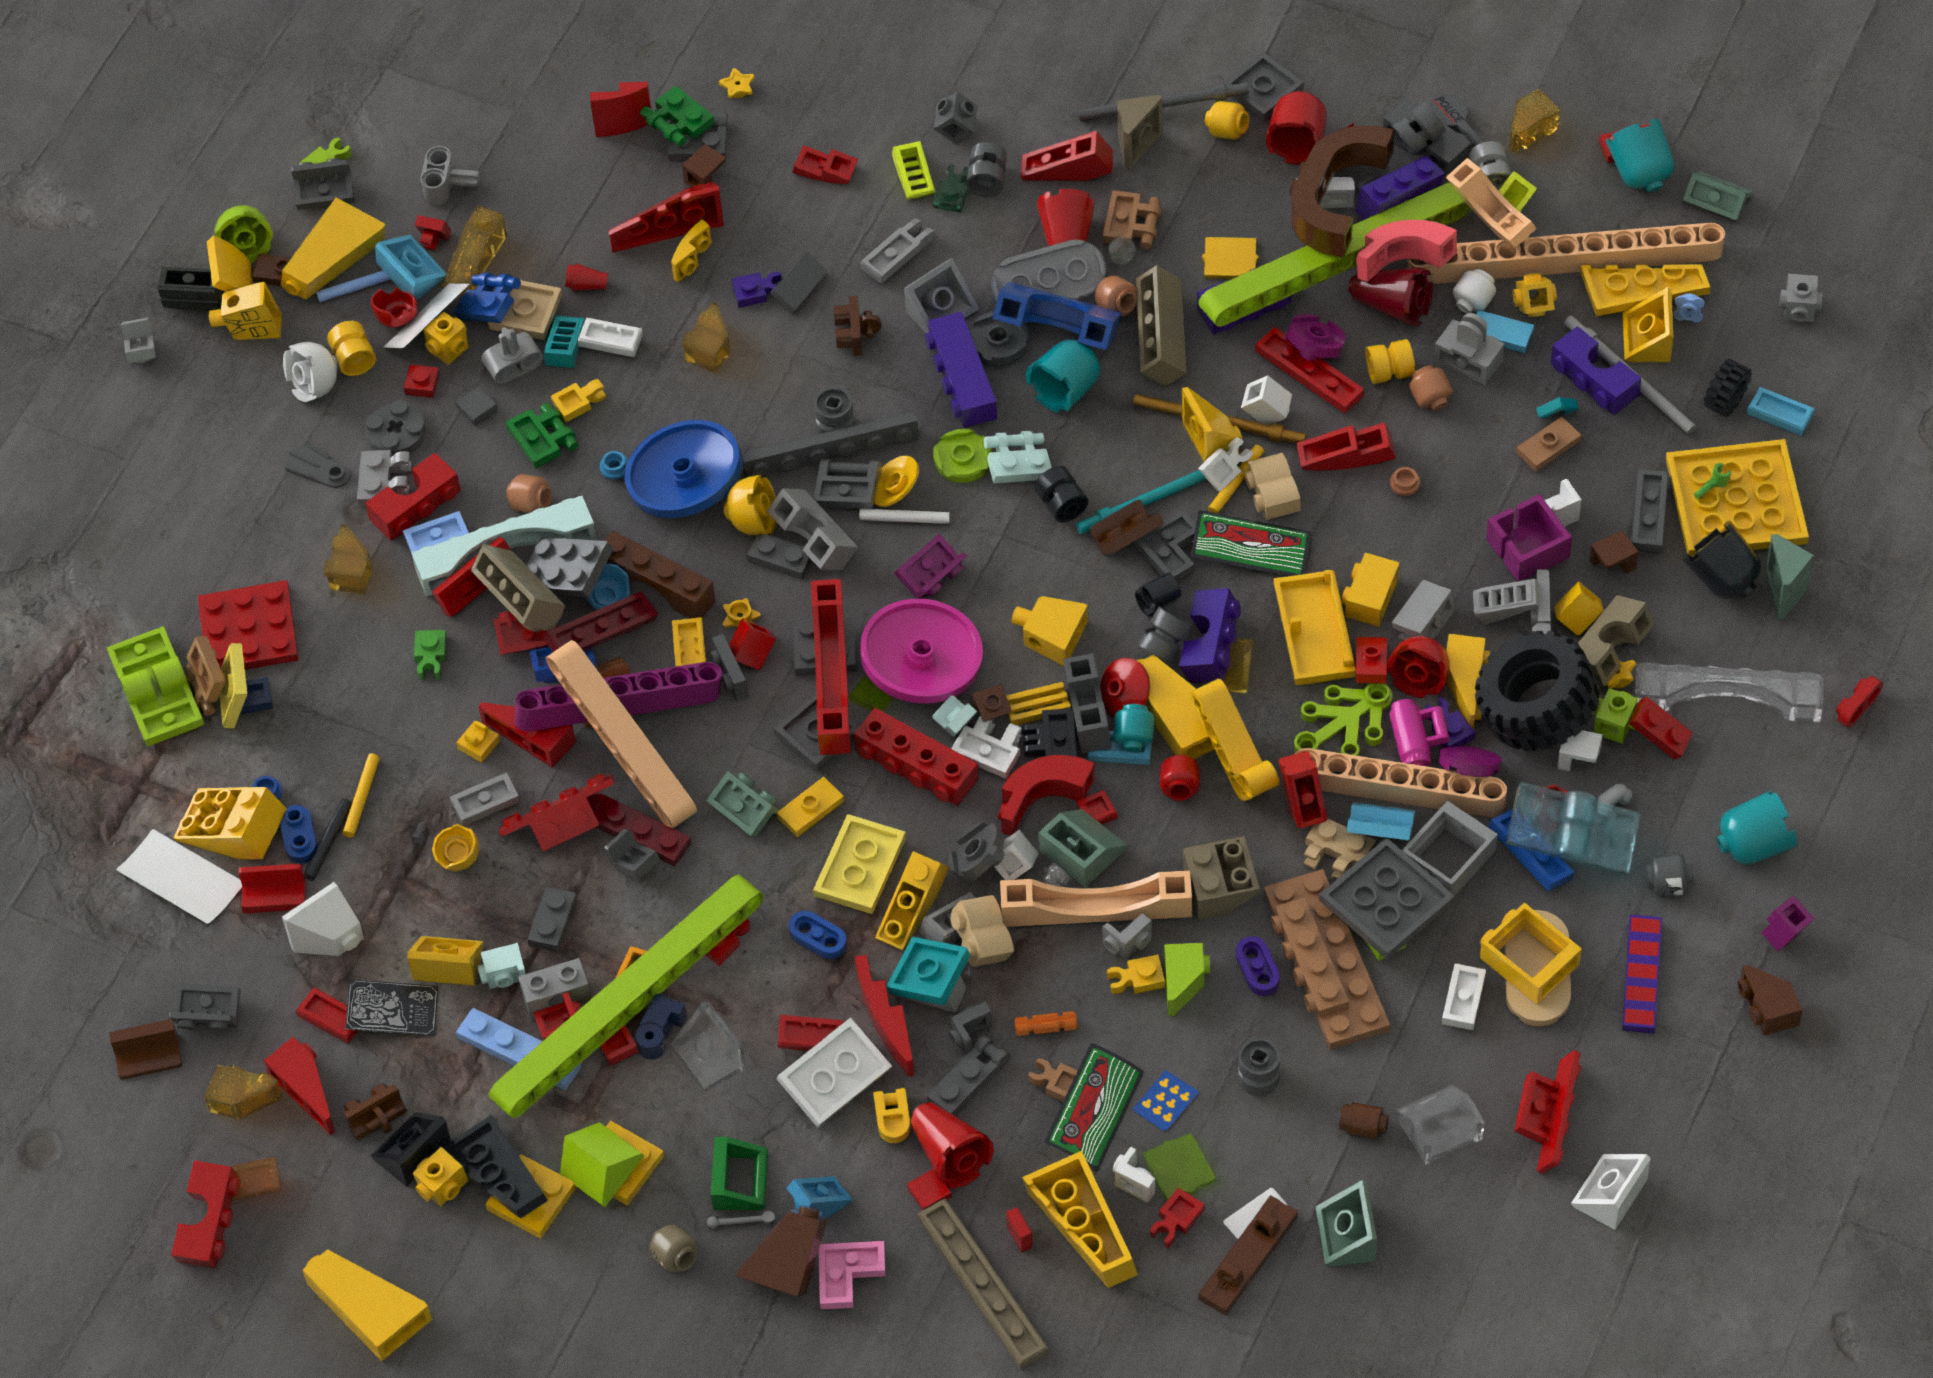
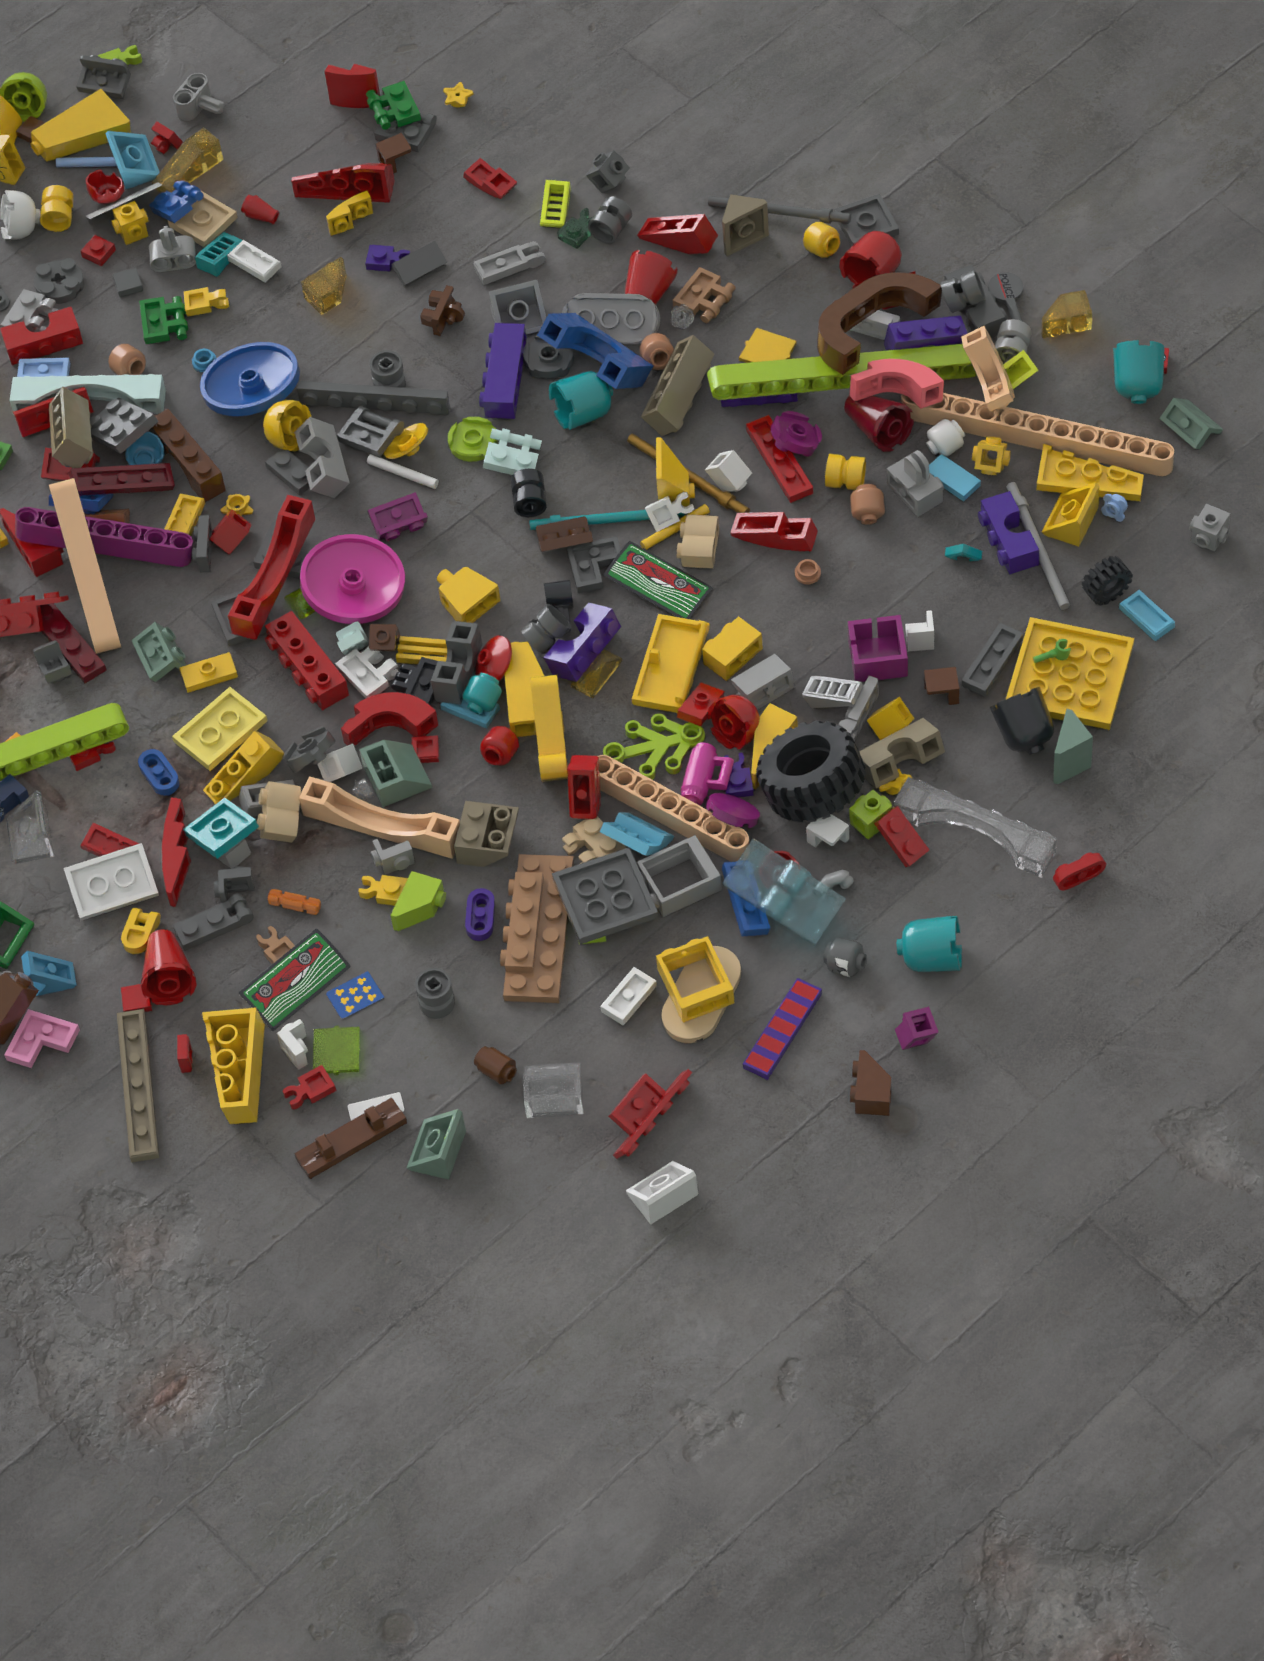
camera: 25 degrees right, 0 degrees up
(1548, 444) = (941, 580): medium nougat plate -> none

